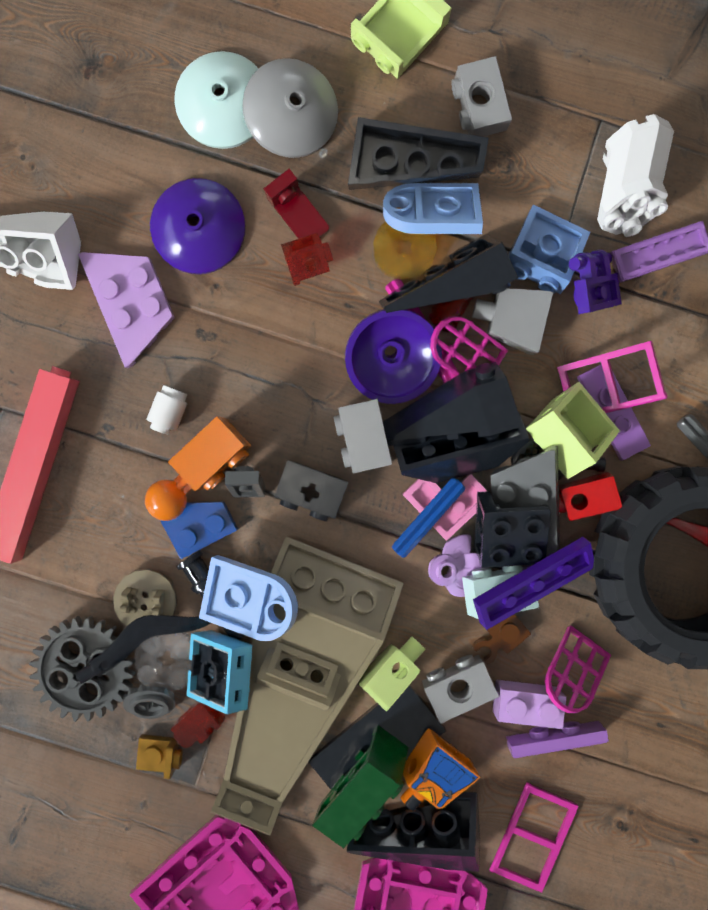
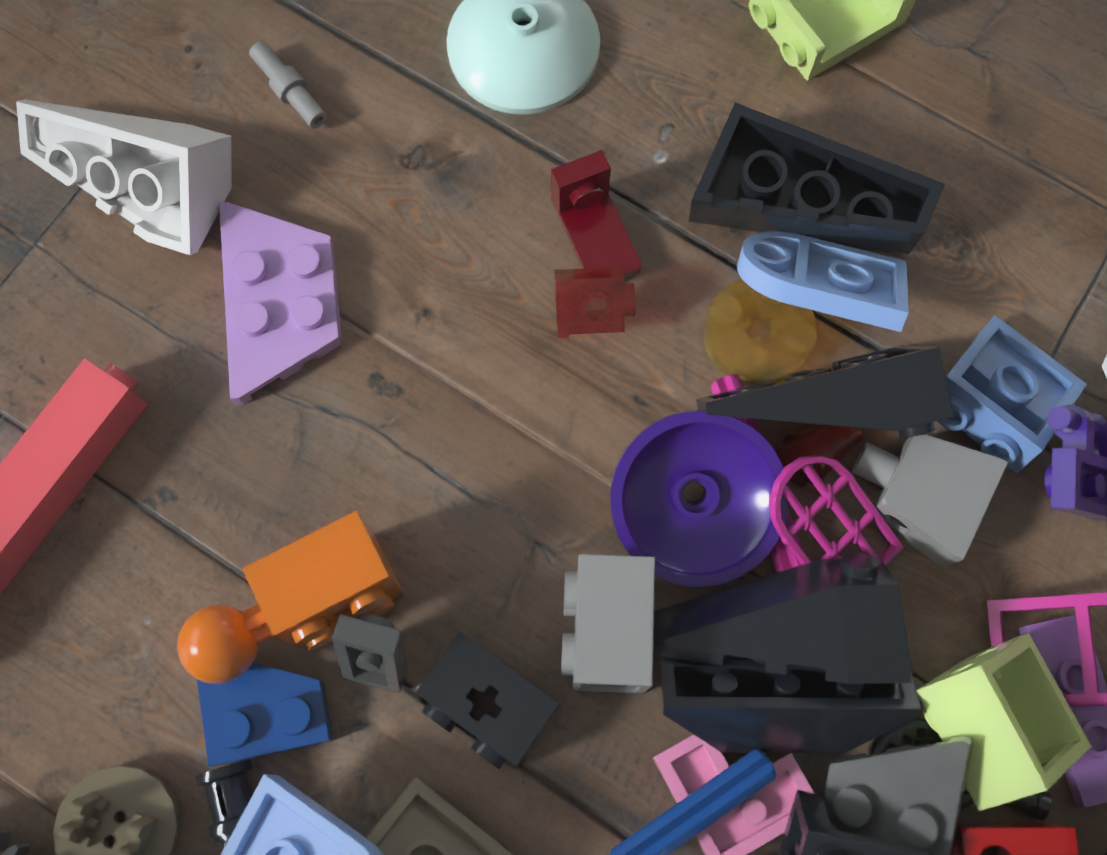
camera: 15 degrees right, 15 degrees down
(91, 167) = (288, 84): none -> light grey bar
(167, 410) = (277, 488): white brick -> none
(209, 243) = (431, 240): dark purple dish -> none
(279, 124) = (612, 95): light grey dish -> none
(481, 79) = (951, 110): light grey brick -> none

